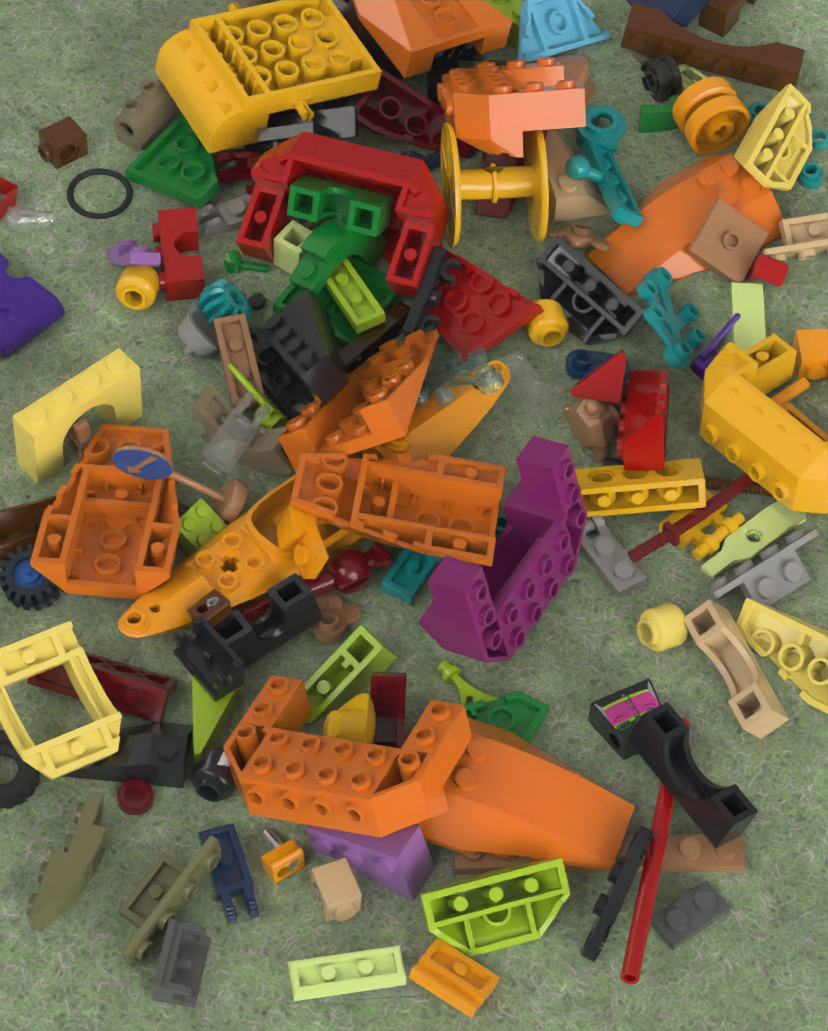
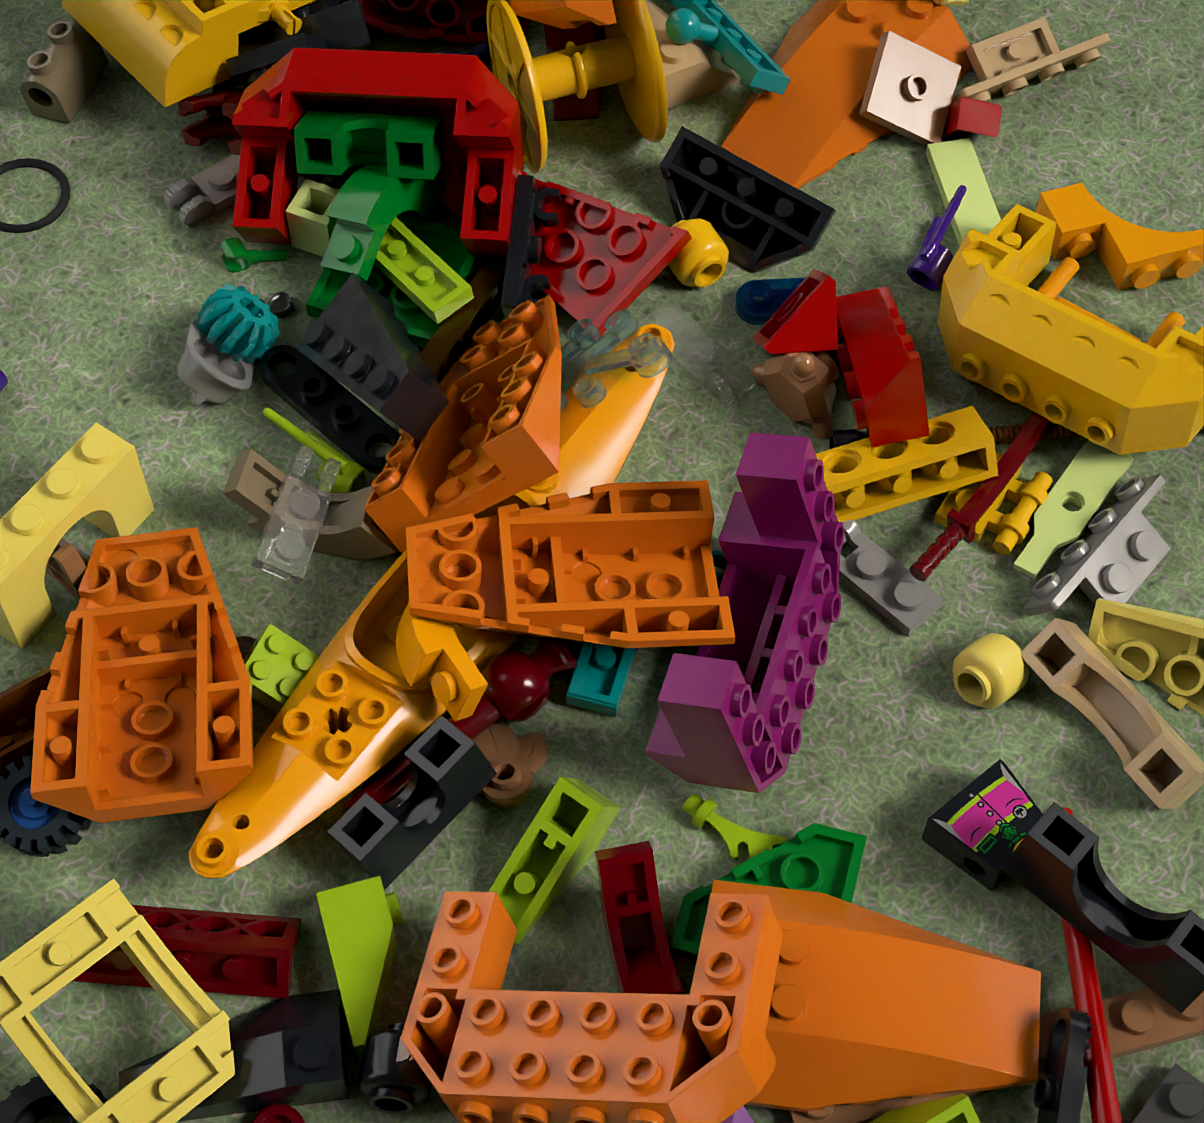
camera: 10 degrees left, 5 degrees up
(129, 254) = (84, 275): medium lavender slope -> none
(137, 287) = (106, 319): yellow head -> none
(154, 465) = (311, 616): medium nougat piece -> none
(177, 166) = (124, 135): green plate -> none
(181, 274) = (165, 287): red arch -> none
(209, 659) = (343, 887): black hinge -> none
(212, 607) = (326, 806): reddish brown piece -> none
(237, 348) = (272, 385): medium nougat plate -> none
(352, 721) = (585, 944): yellow hat -> none
(579, 236) = (708, 122): medium nougat plate -> none
(677, 351) = (852, 210): teal plant -> none

